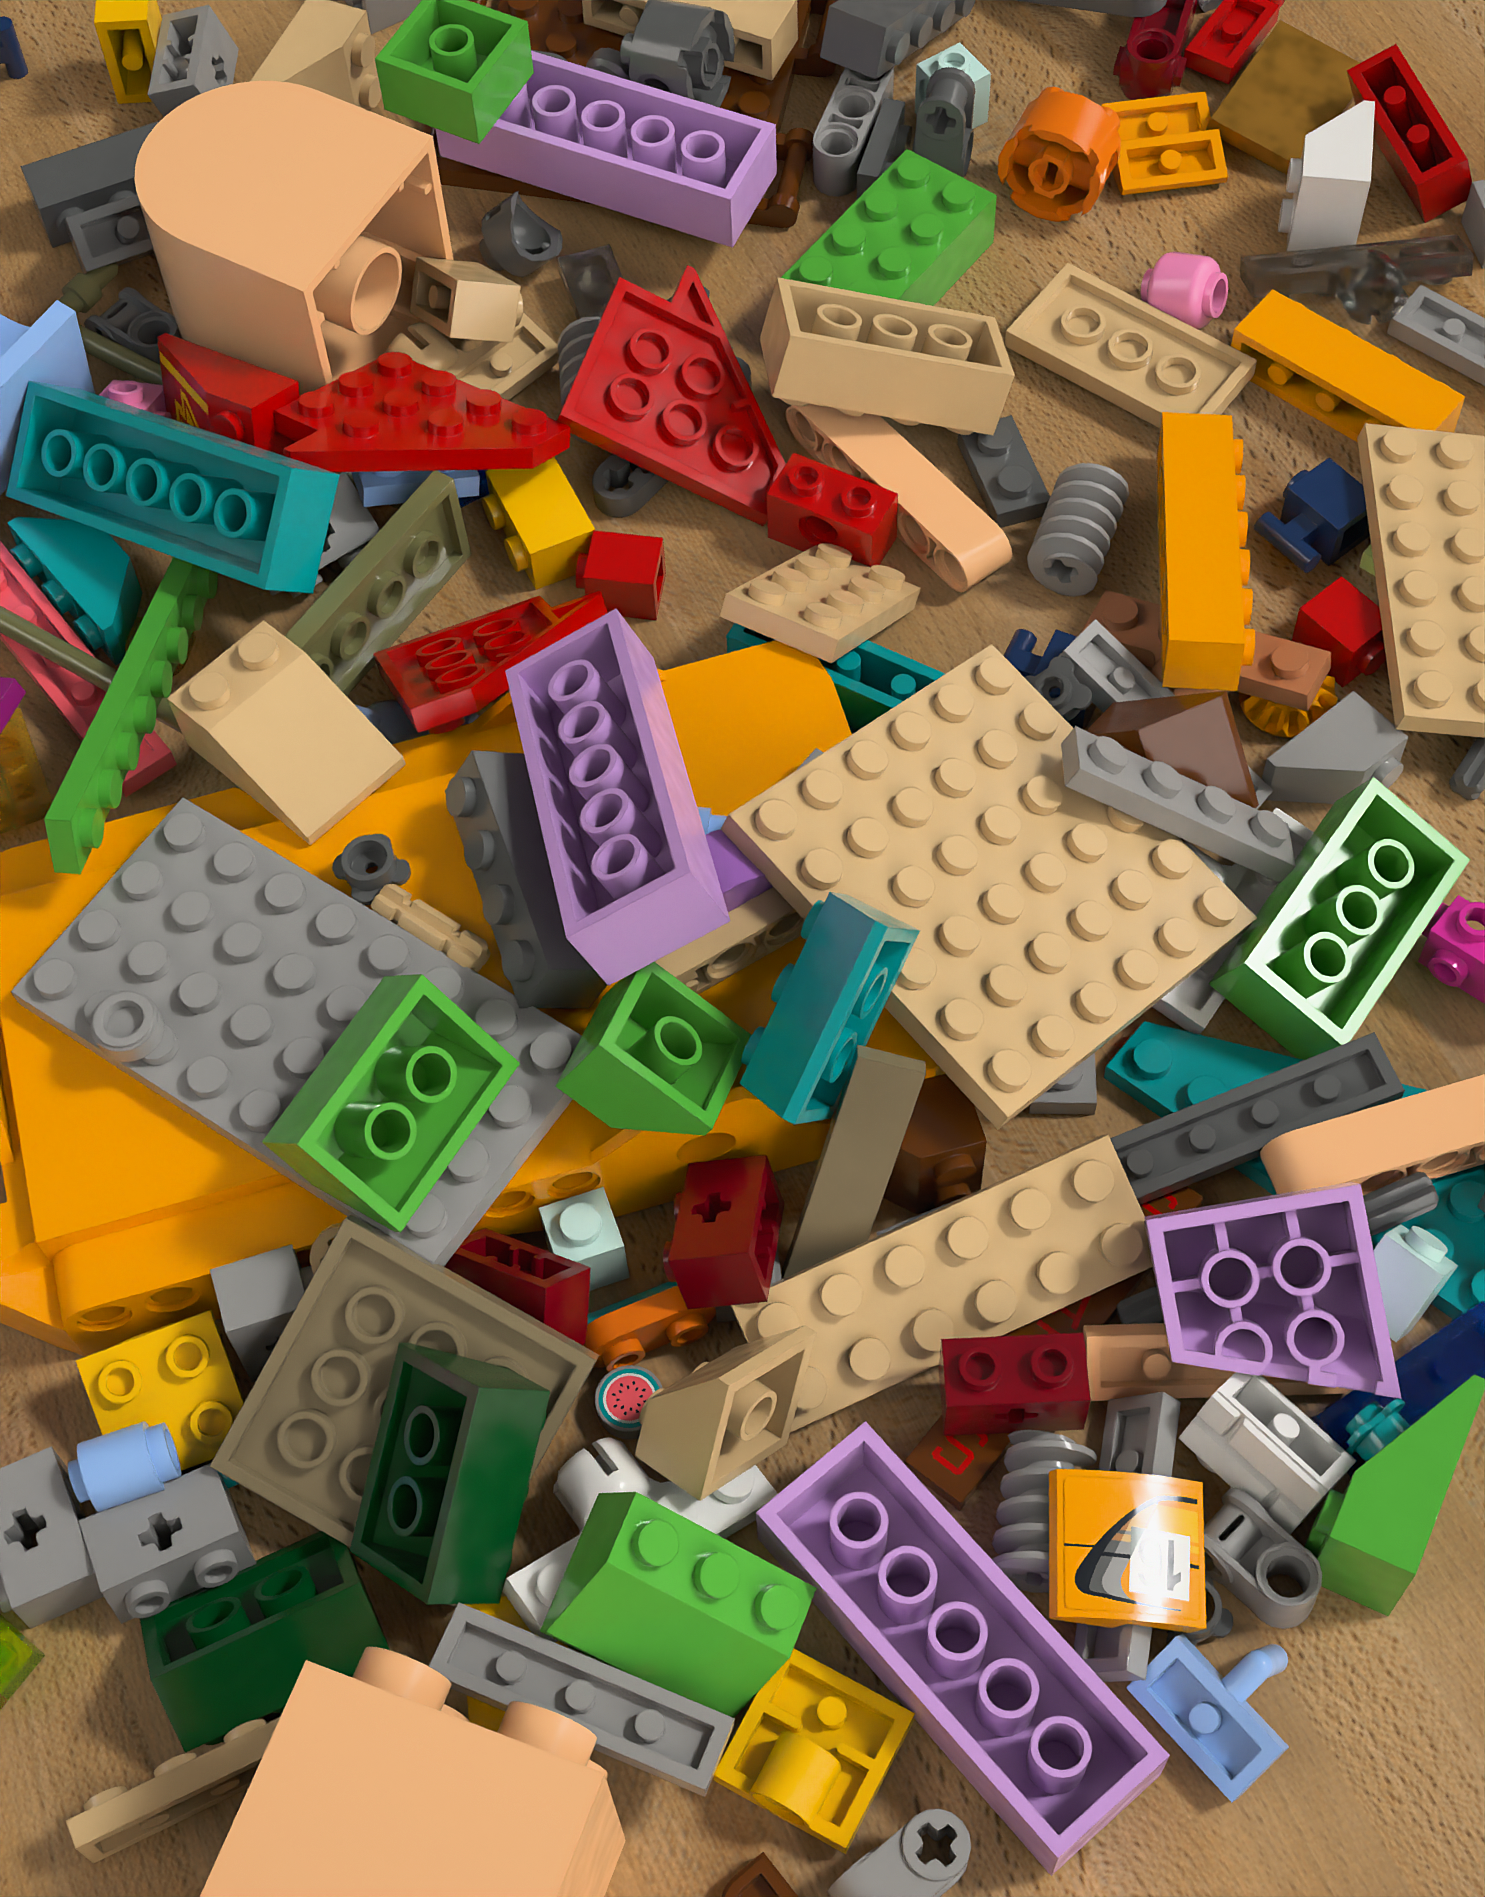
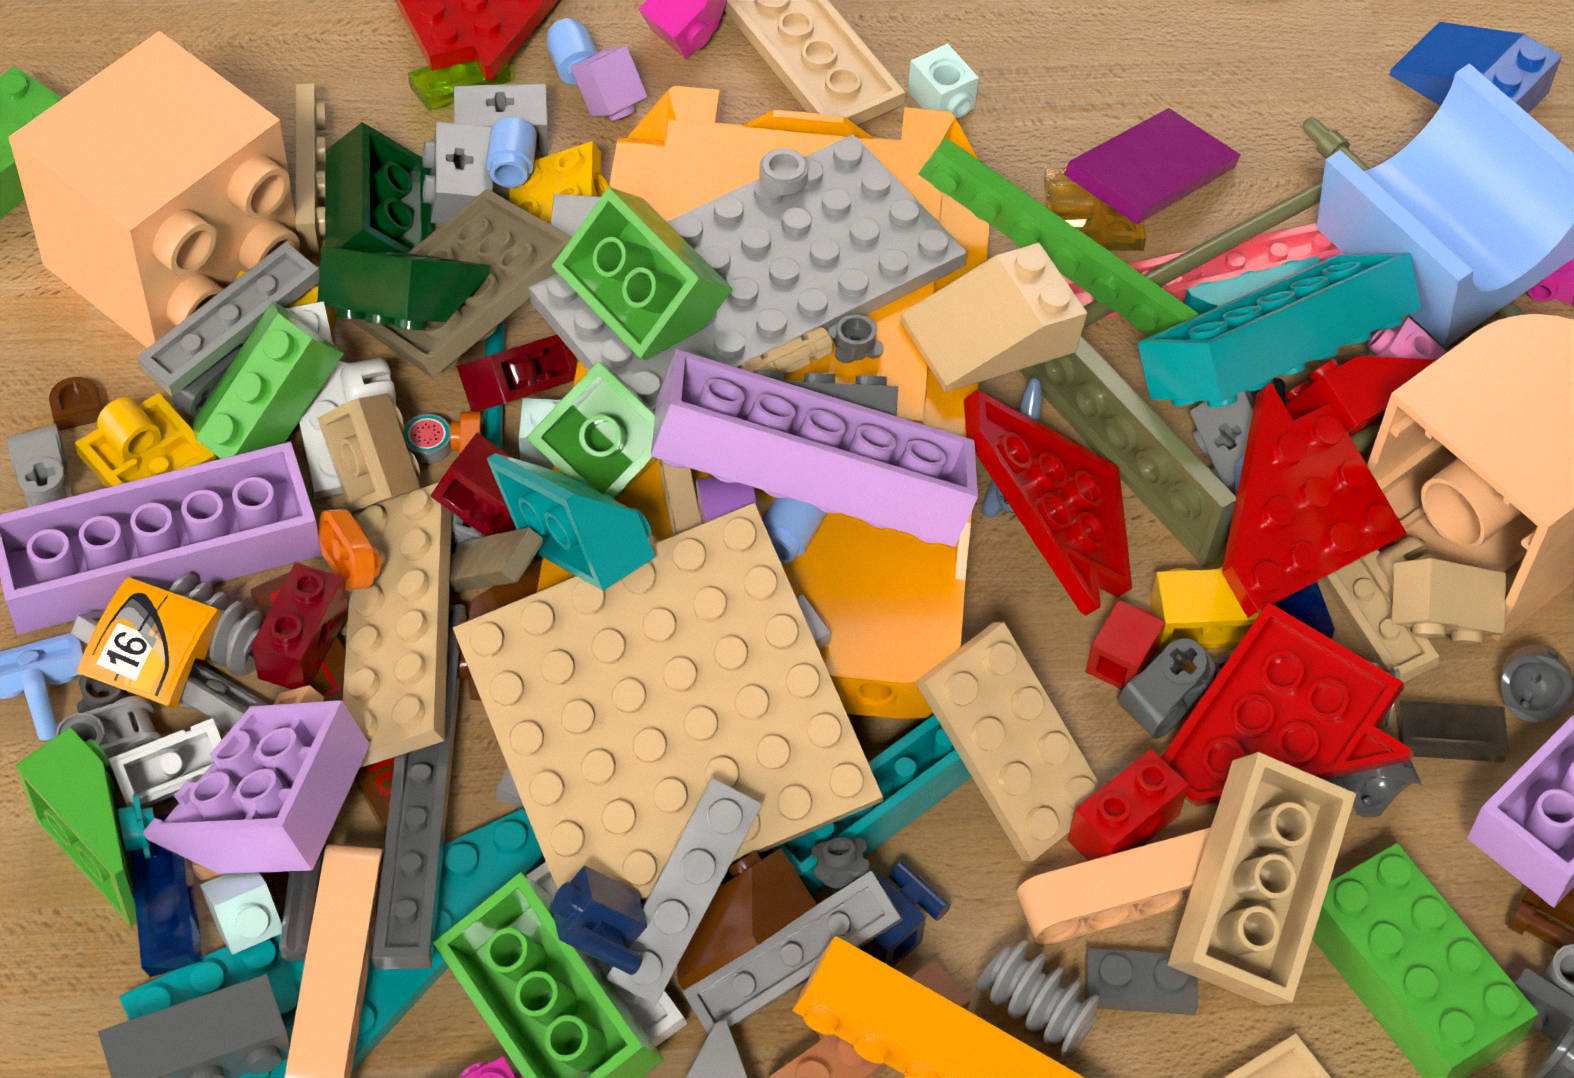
camera: 105 degrees right, 5 degrees down
(664, 512) = (1164, 690): none -> dark grey piece
(885, 1369) = (347, 549): none -> orange plate
(1260, 864) = (600, 918): none -> dark blue brick

